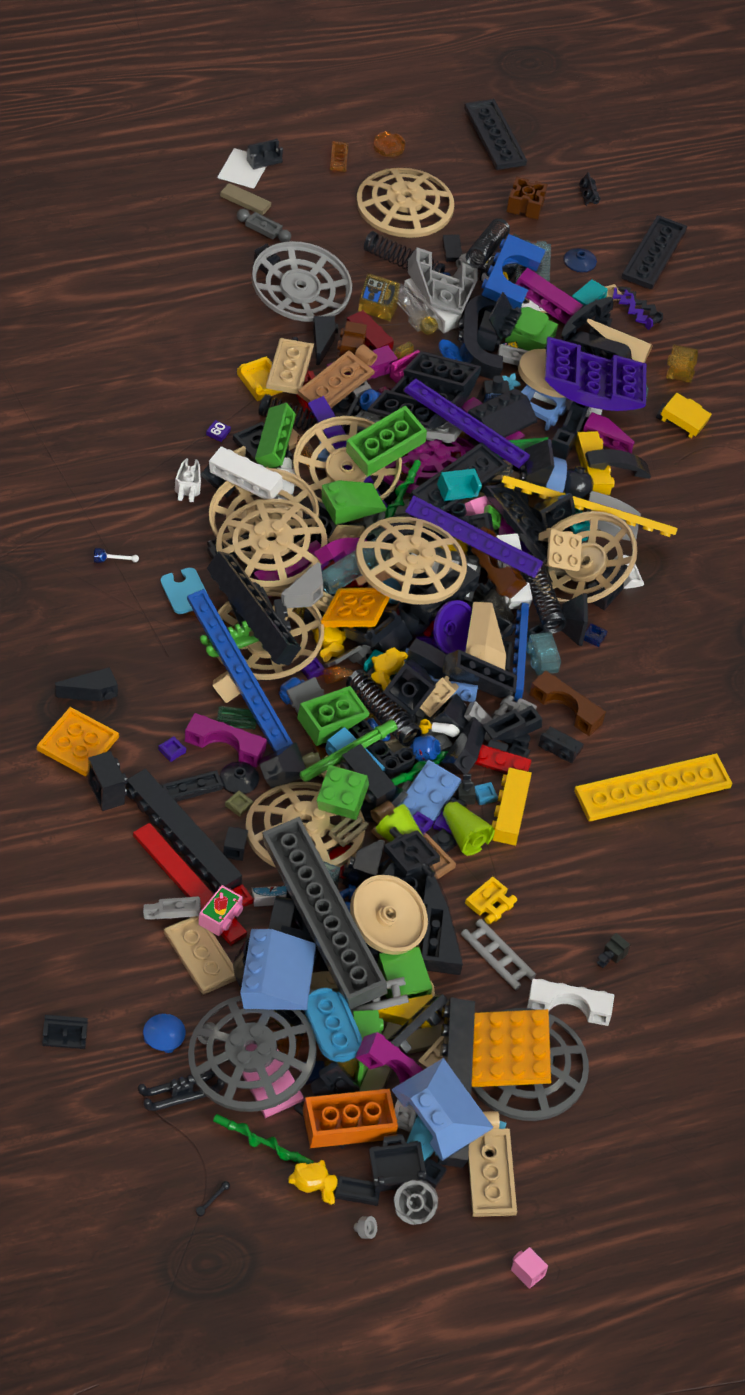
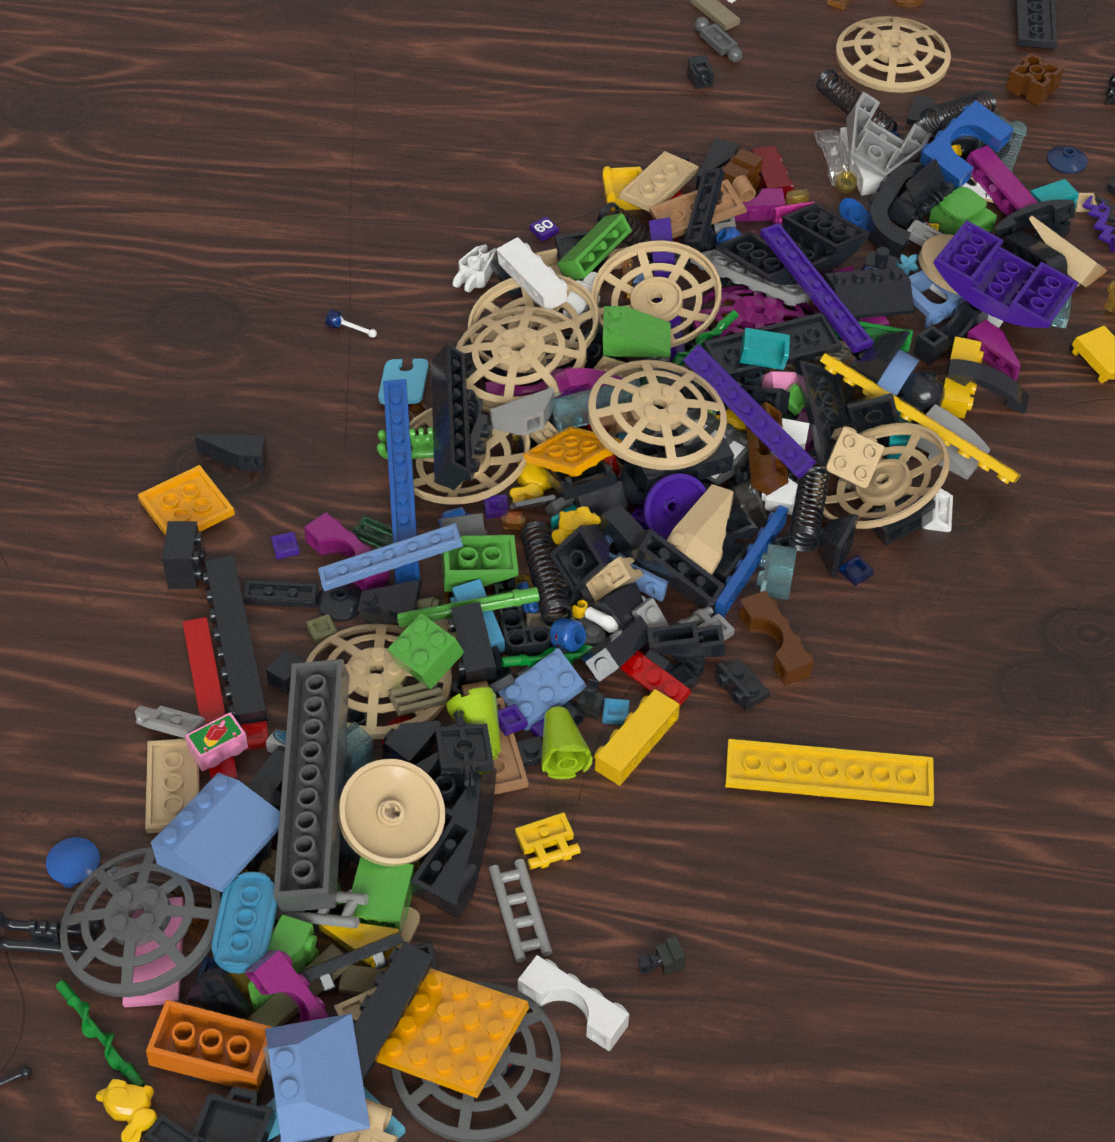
camera: 30 degrees right, 0 degrees up
(225, 687) = (380, 497): tan panel -> none
(268, 731) = (390, 557): none -> medium blue tile
(296, 277) = (723, 97): light grey dish -> none
(346, 380) = (704, 207): none -> black hinge
(379, 297) = (801, 138): clear yellow slope -> none
(386, 441) = (705, 279): bright green brick -> none

